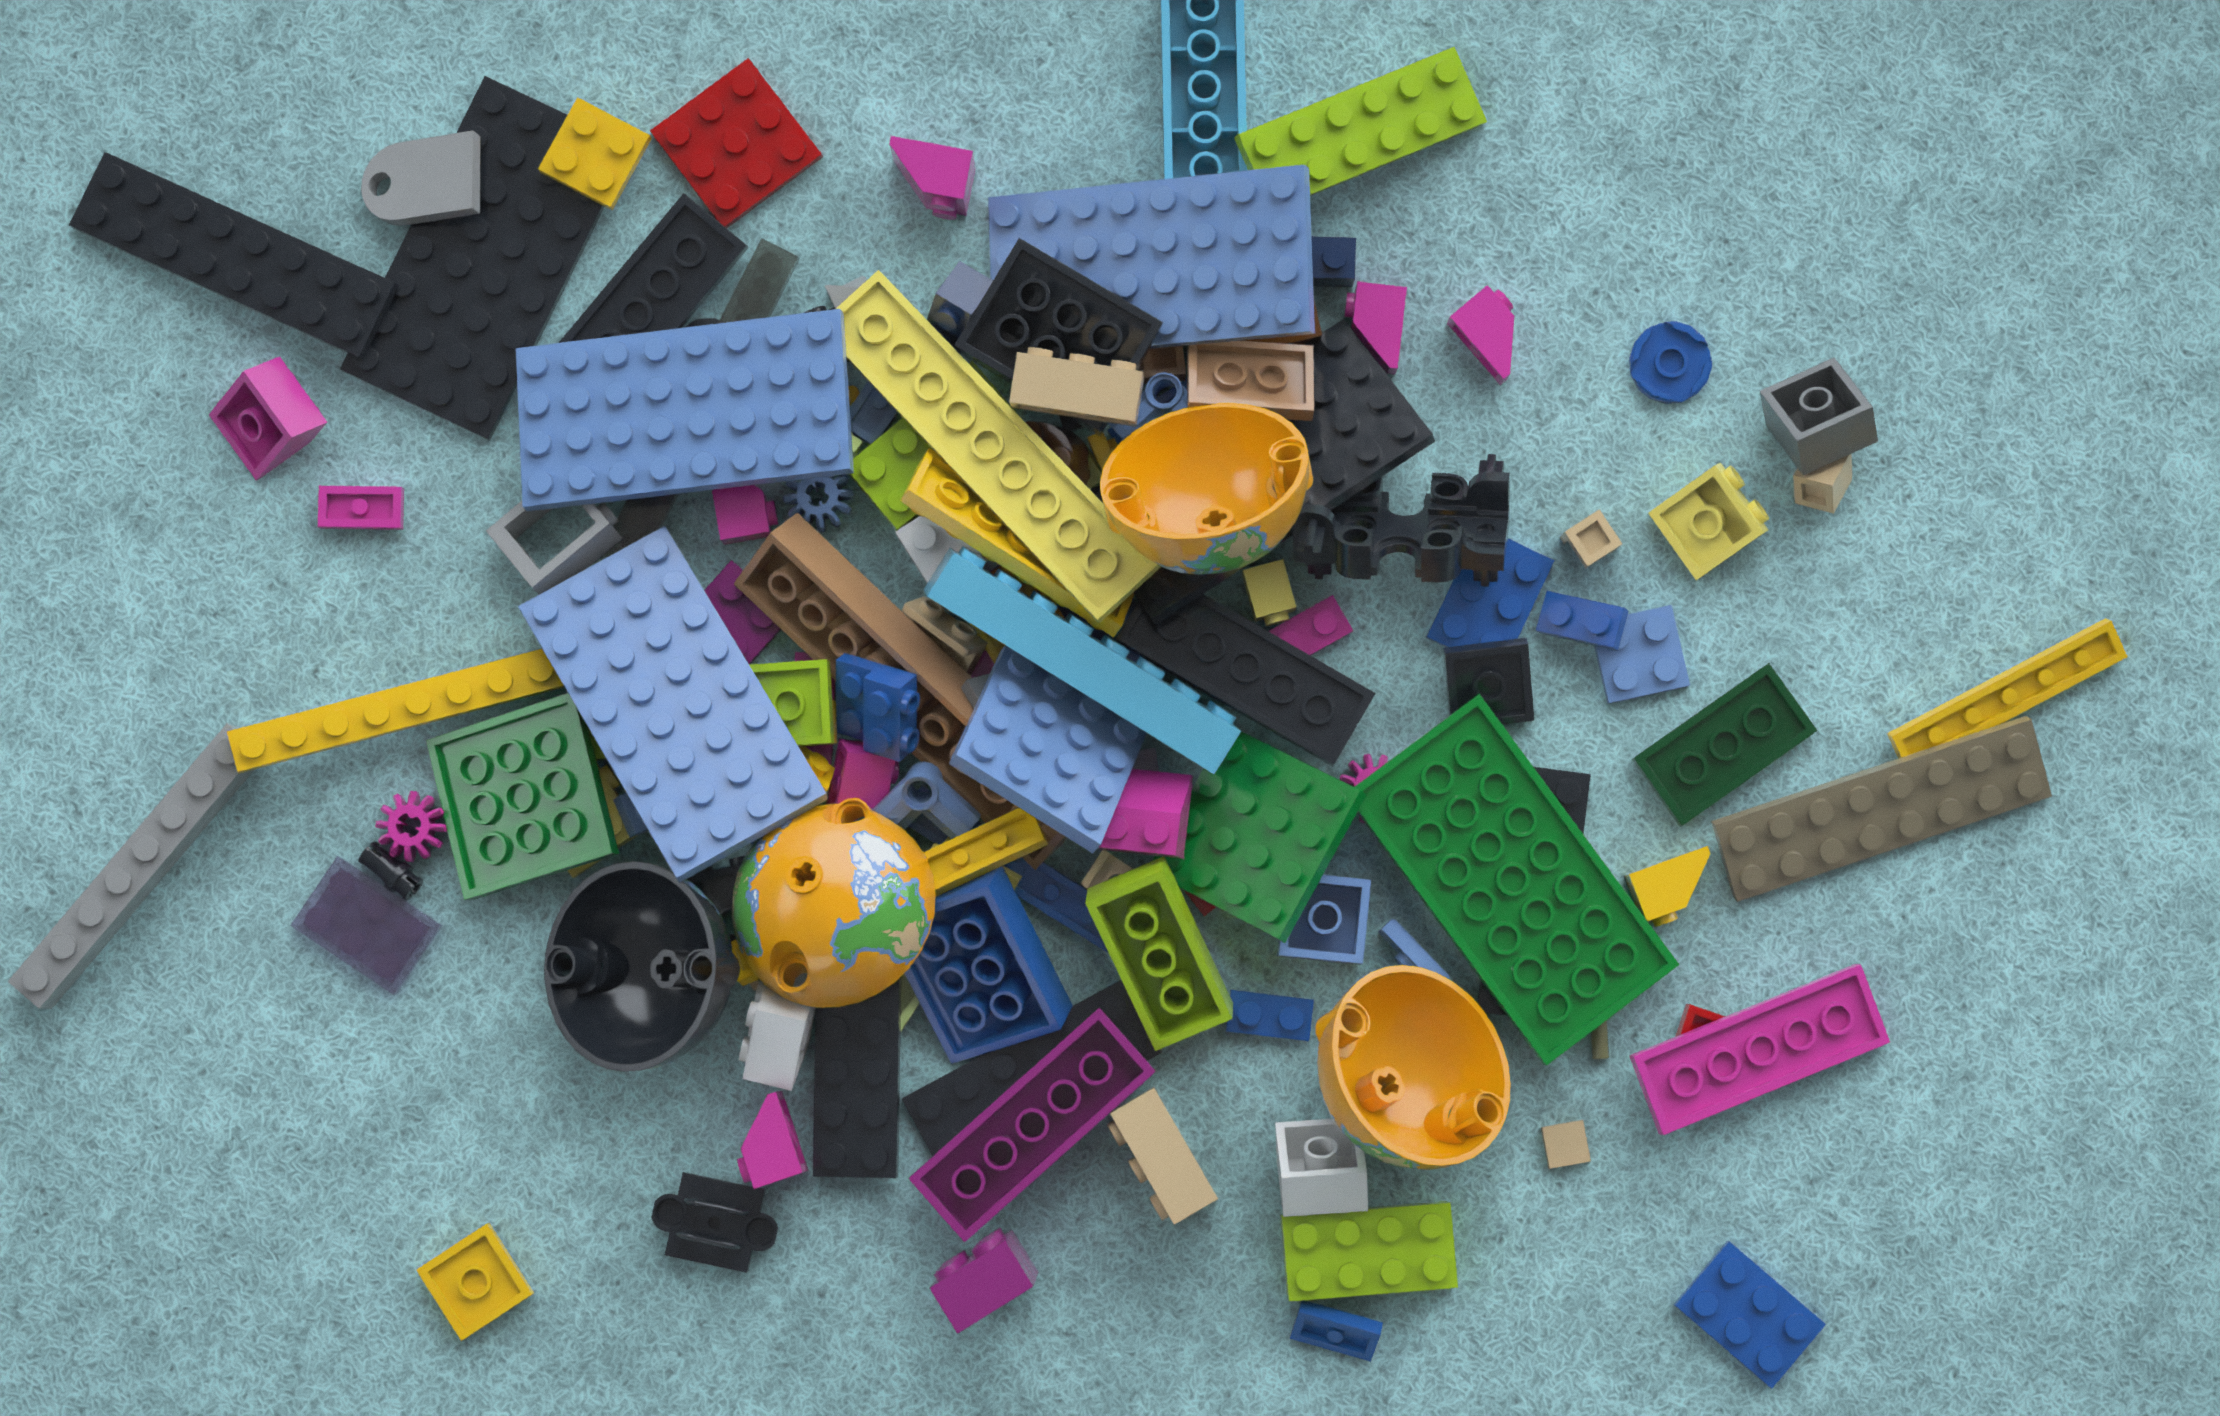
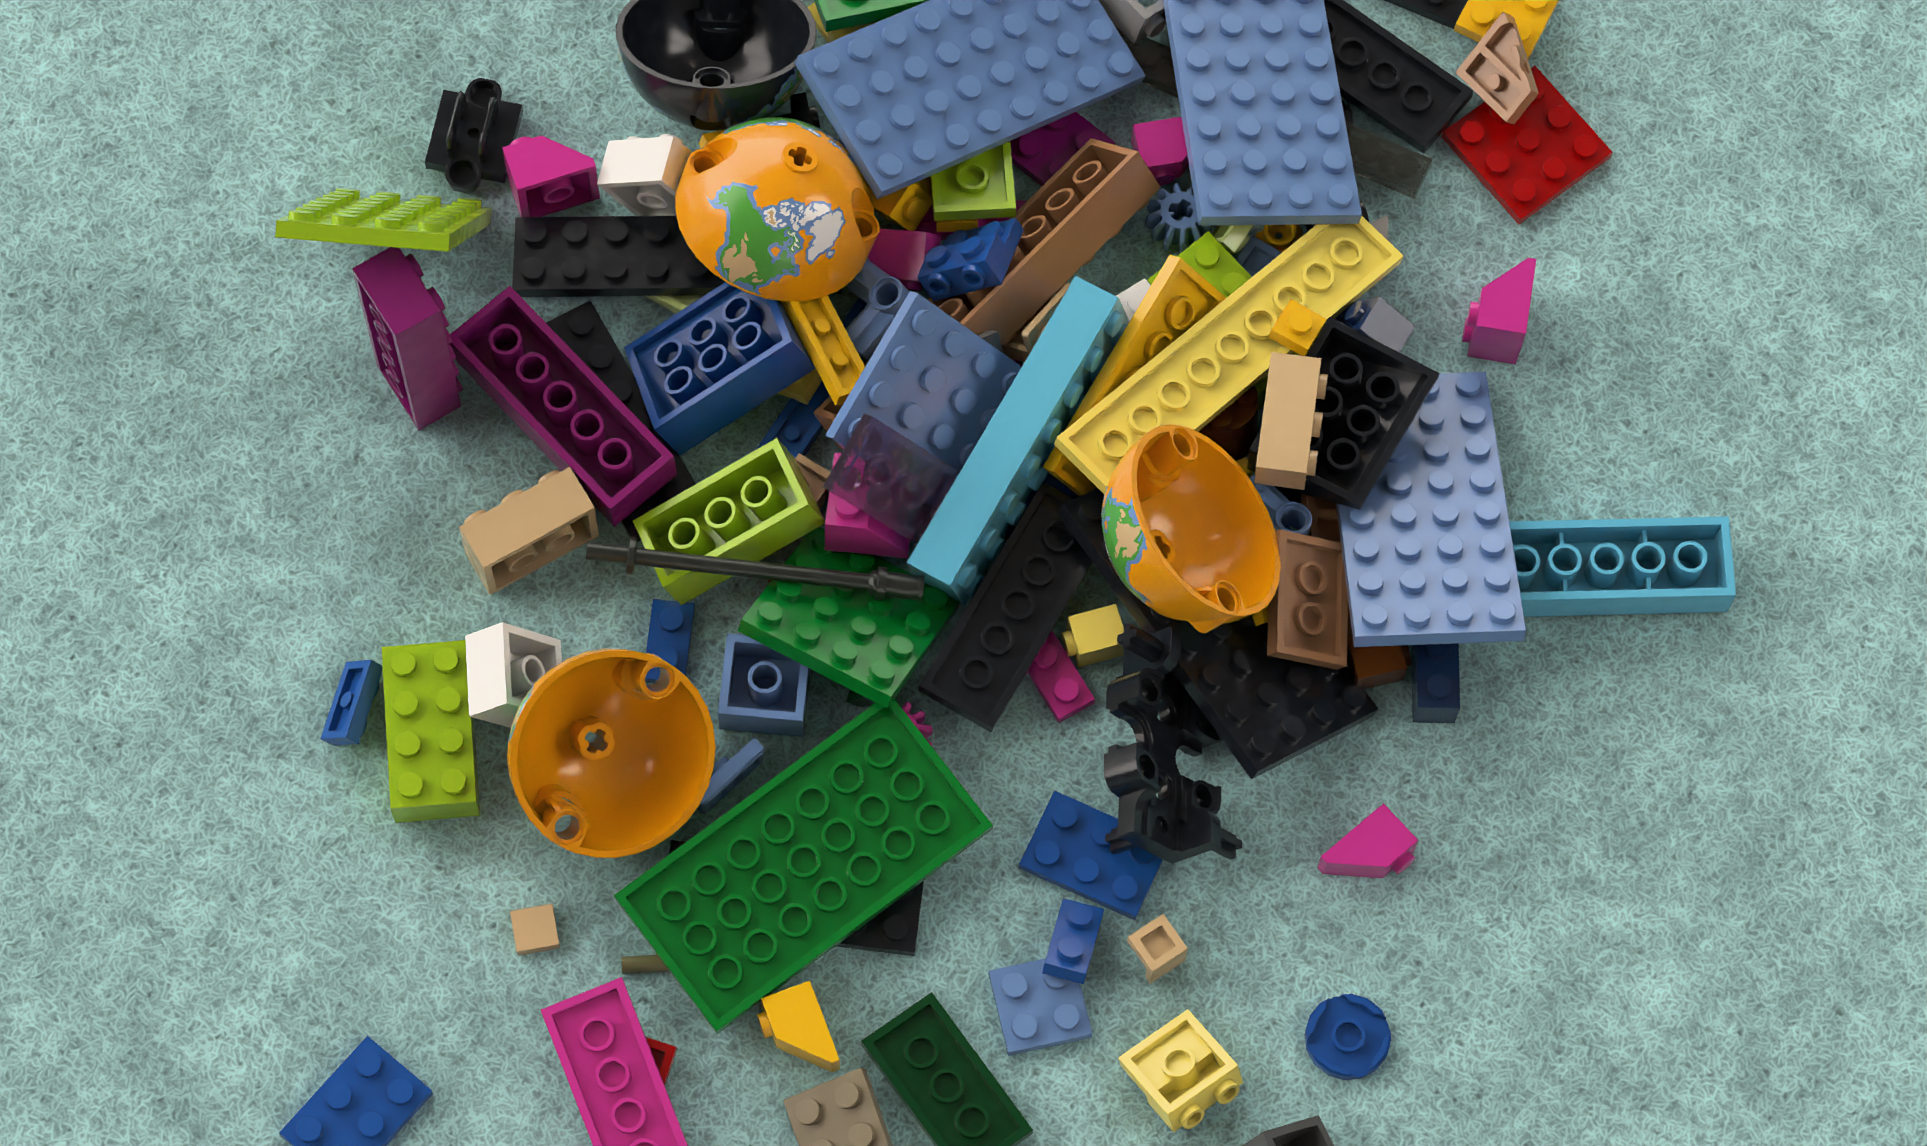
camera: 85 degrees right, 15 degrees down
(668, 162) = (1500, 70): none -> medium nougat wing
(867, 1305) = (385, 220): none -> lime plate
(968, 377) = (1297, 328): none -> yellow plate
(1135, 785) = (891, 478): none -> clear purple plate
(1230, 803) = (877, 583): none -> pearl dark grey bar
(1369, 123) = (1577, 723): lime plate -> none
(1378, 320) = (1376, 741): dark pink slope -> none
(1494, 671) = (1012, 852): black plate -> none

